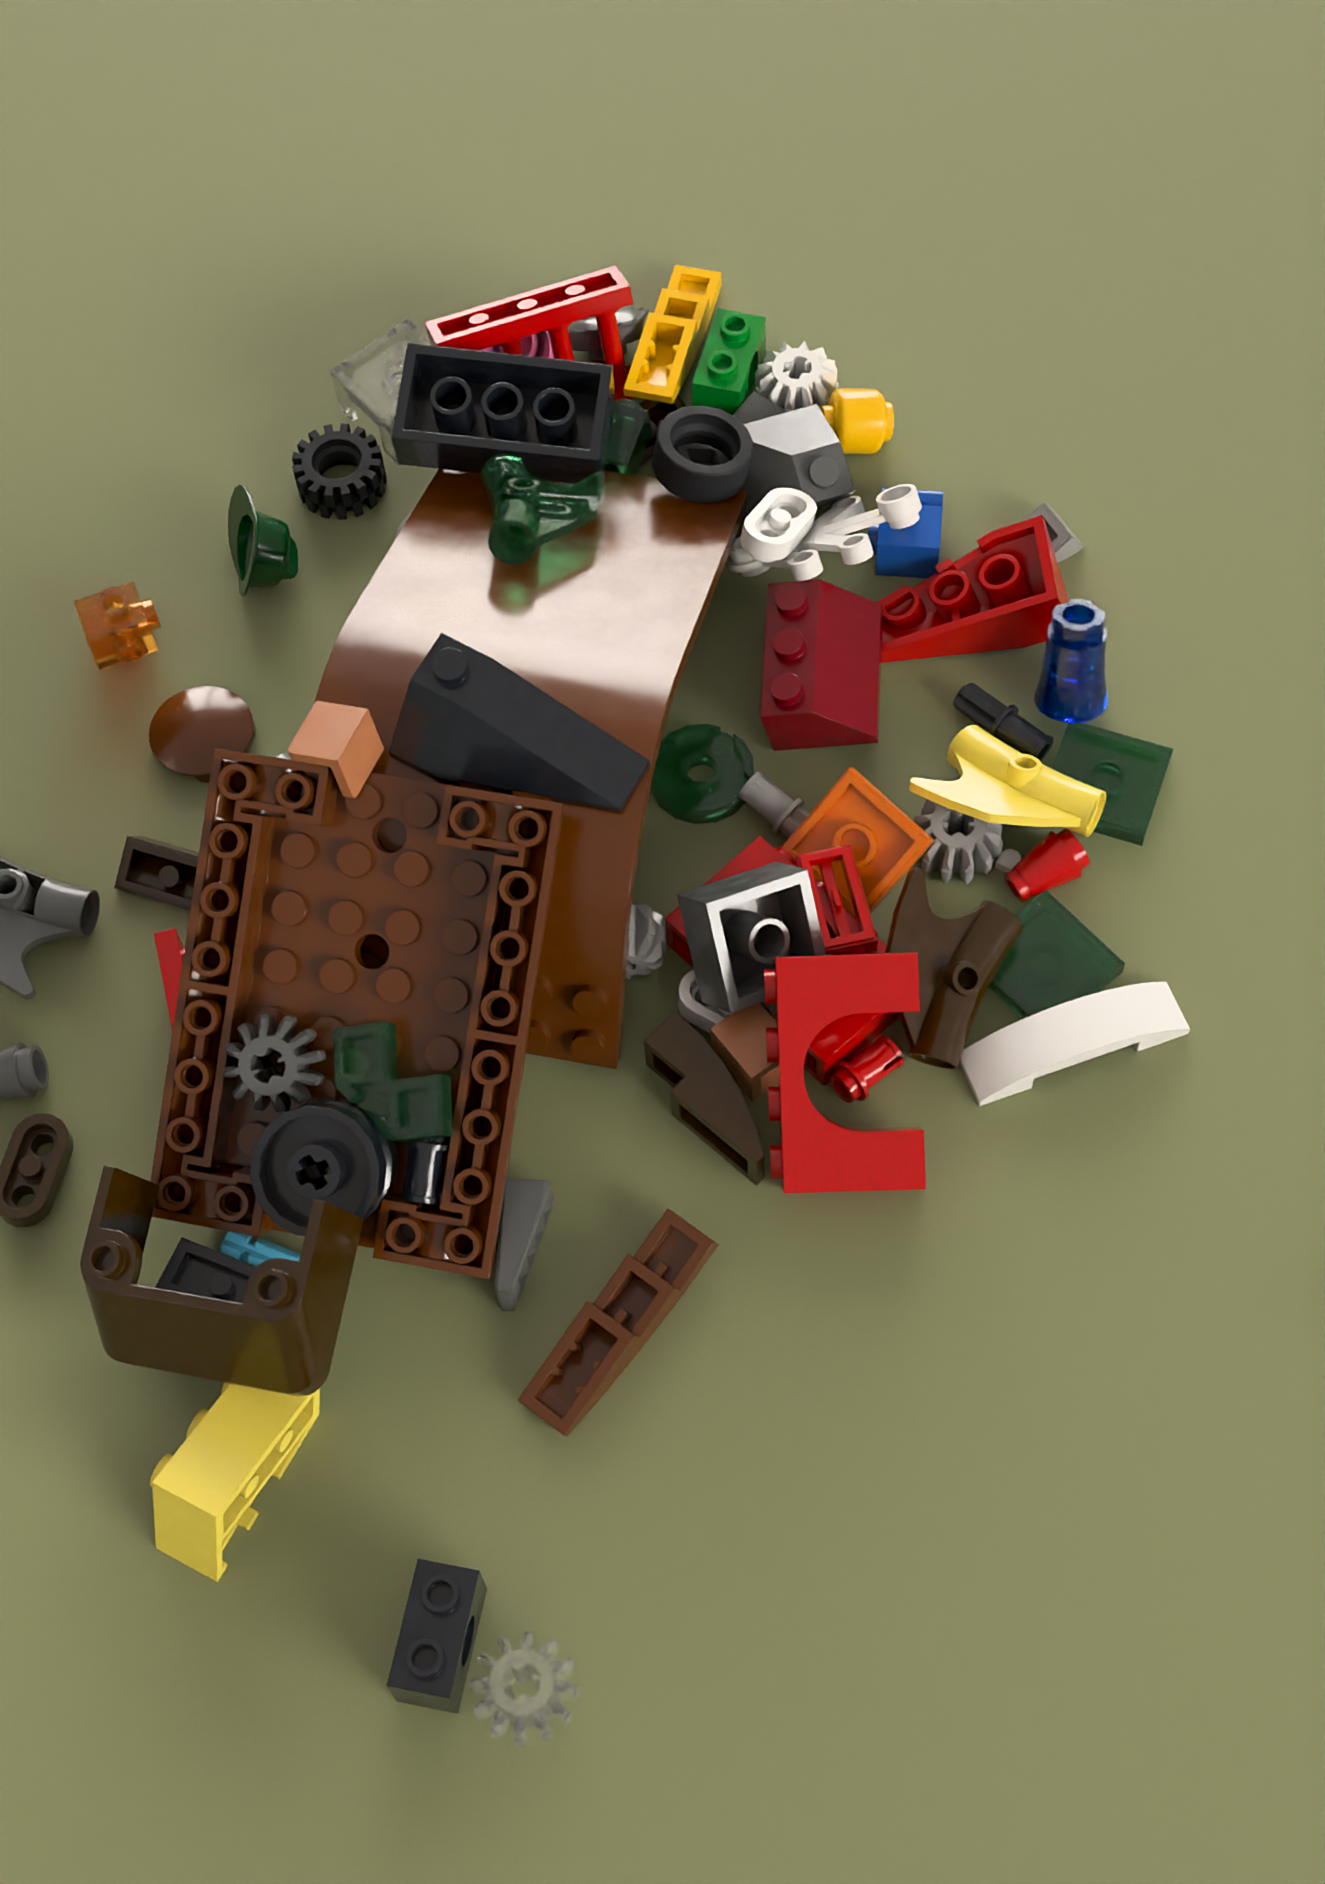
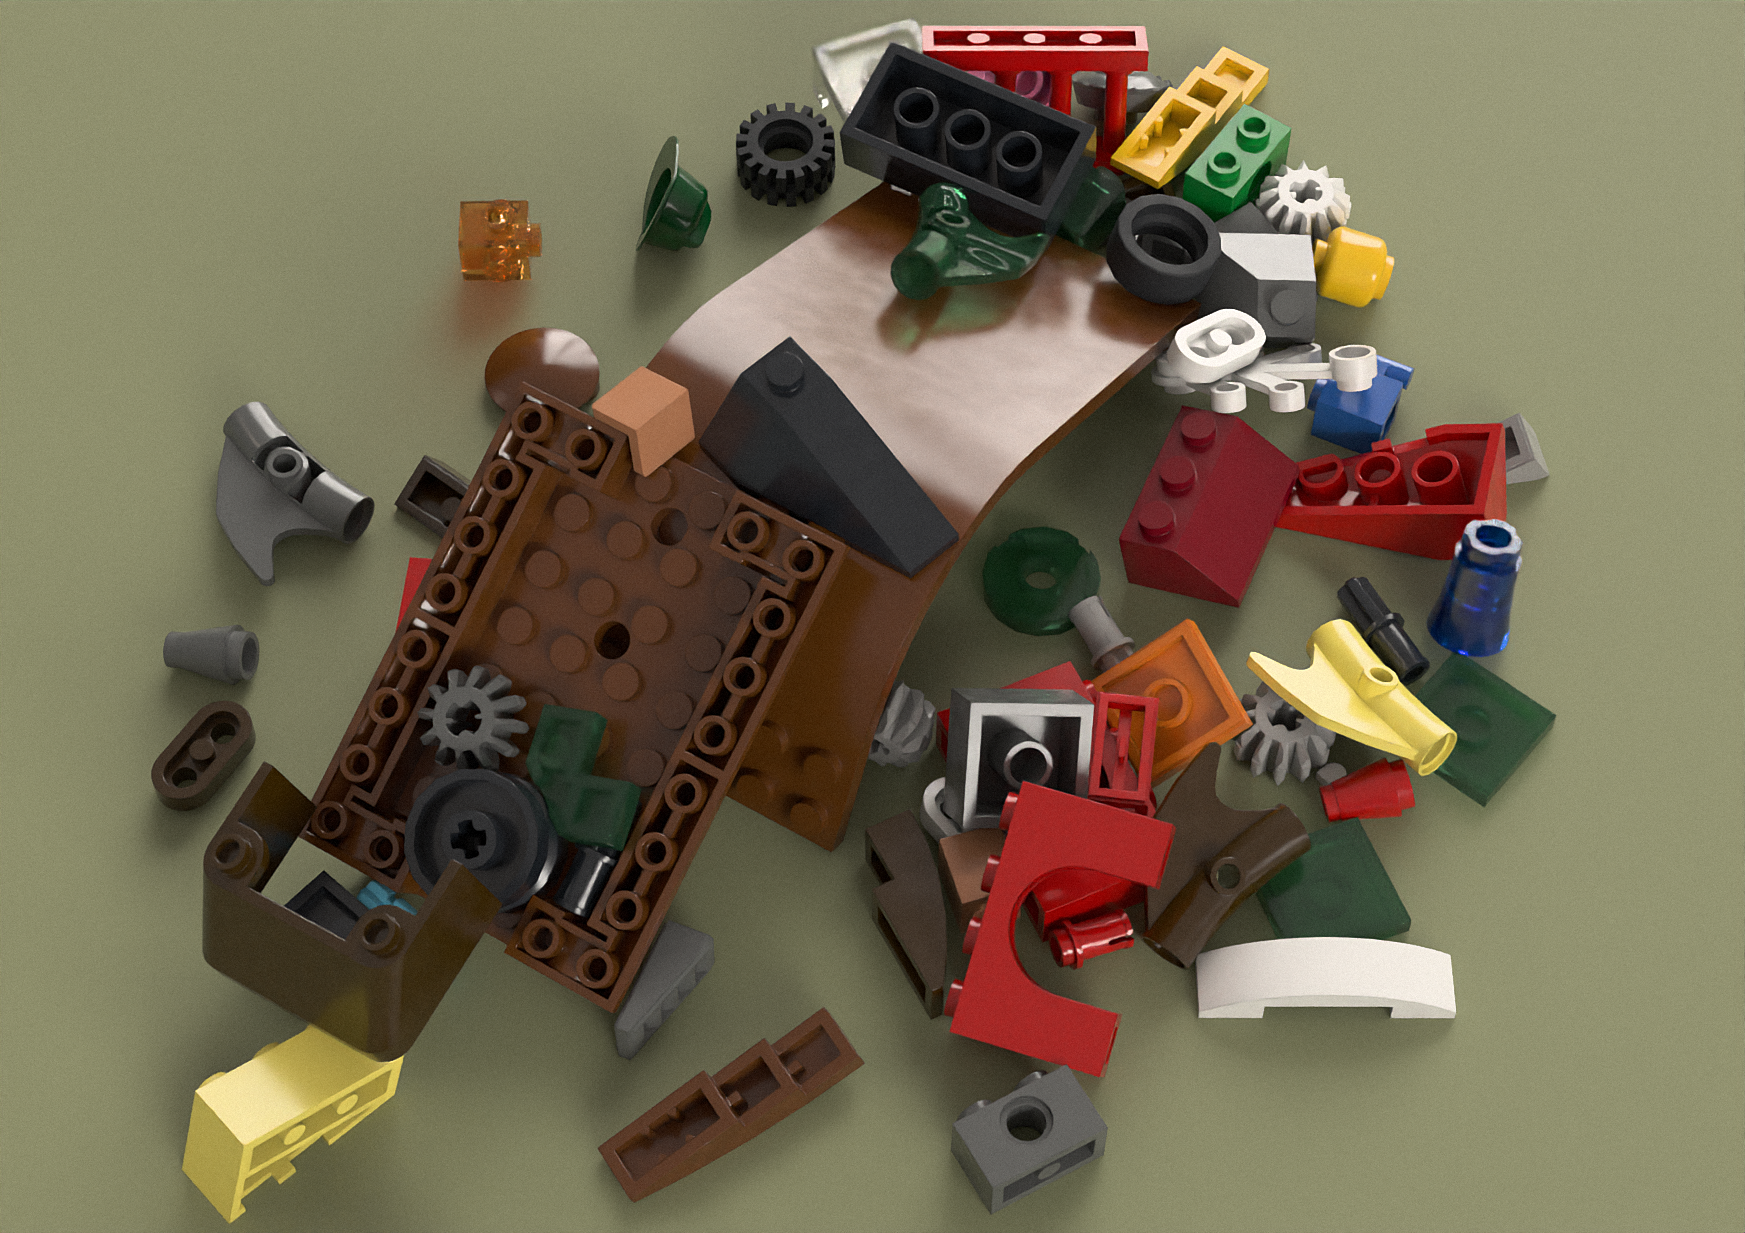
camera: 15 degrees right, 5 degrees down
(873, 1293) = (1009, 1168): none -> dark grey brick

